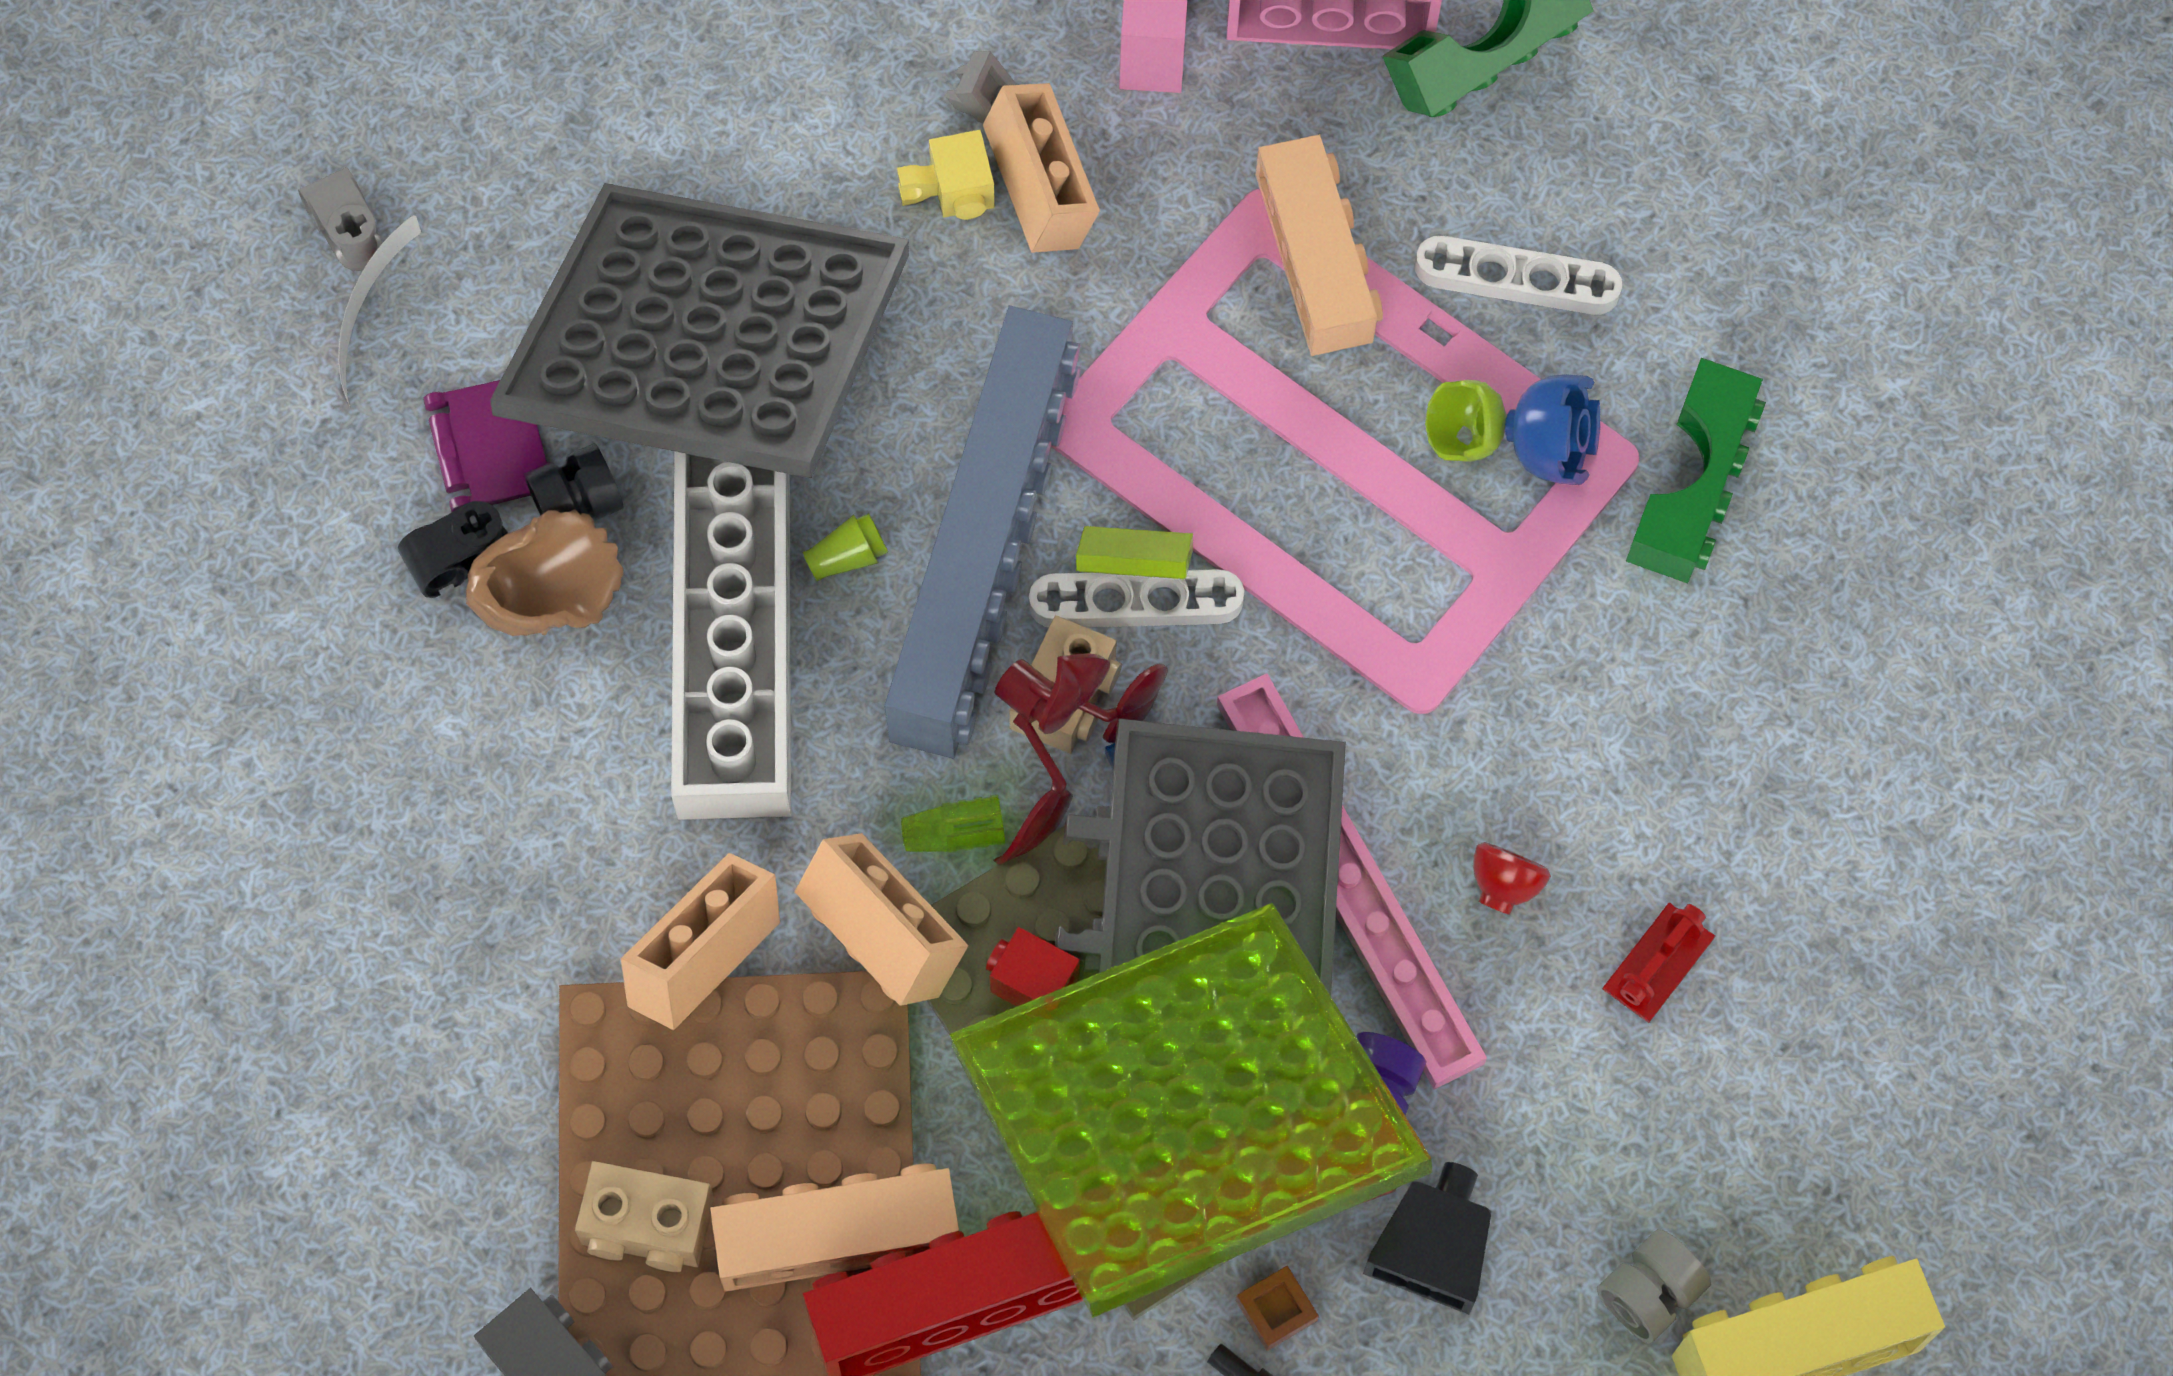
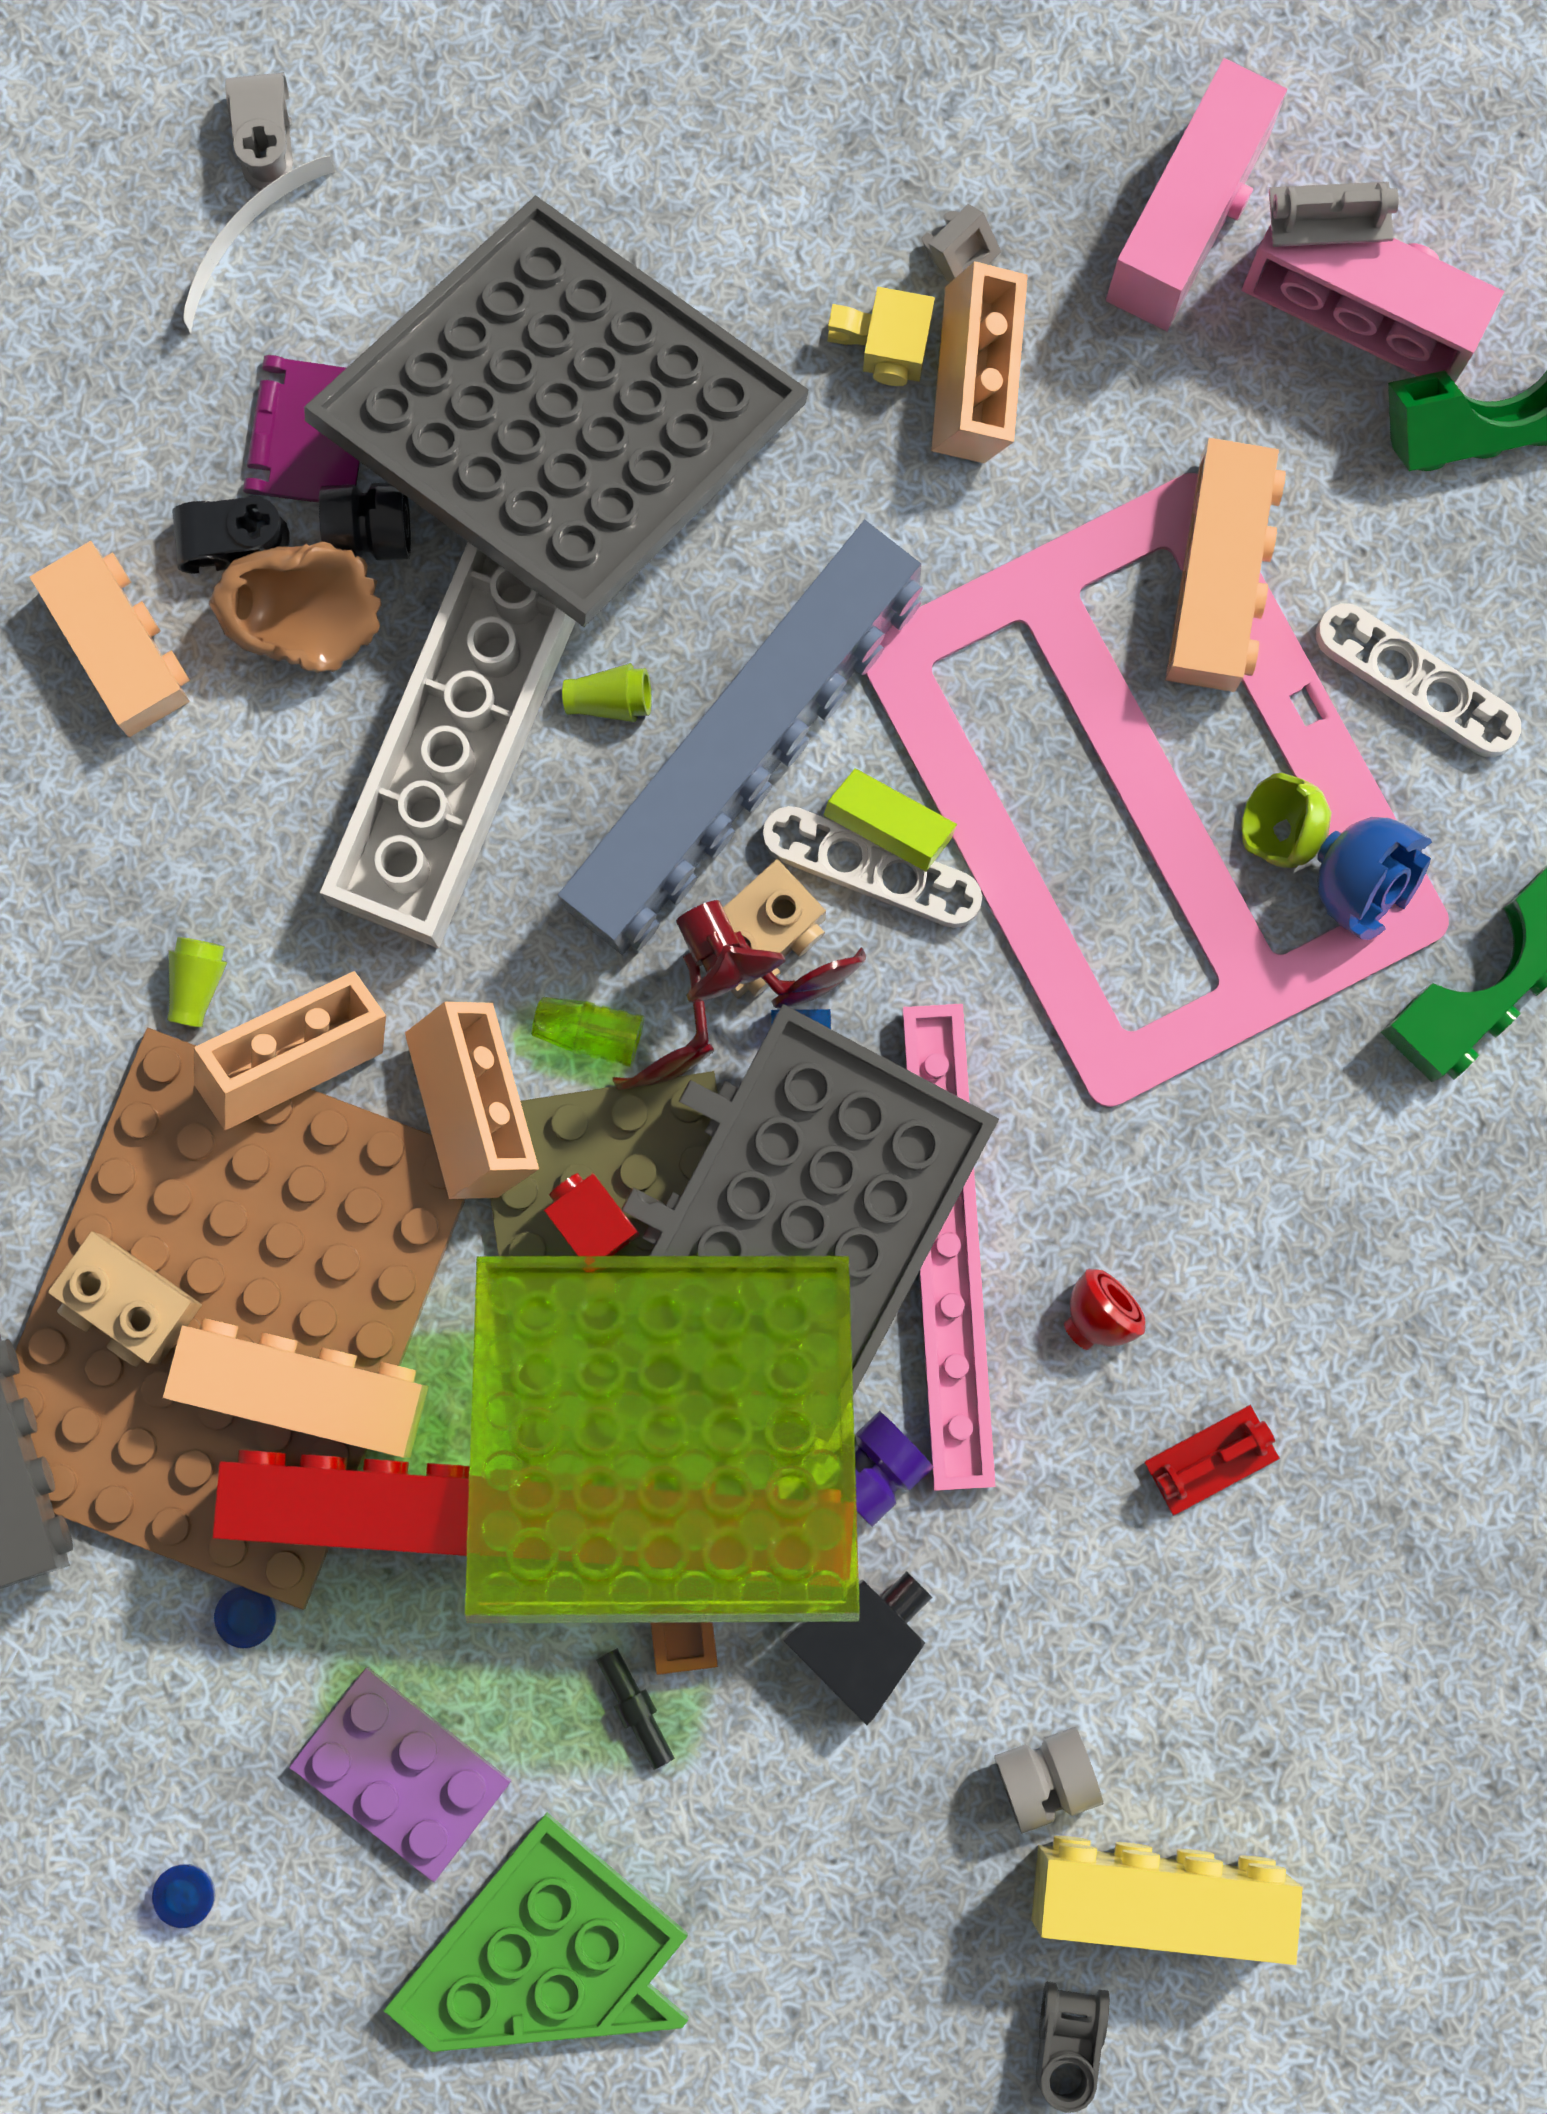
camera: 25 degrees right, 15 degrees up
(389, 672) = (112, 637): none -> light nougat brick
(583, 926) = (193, 979): none -> lime cone

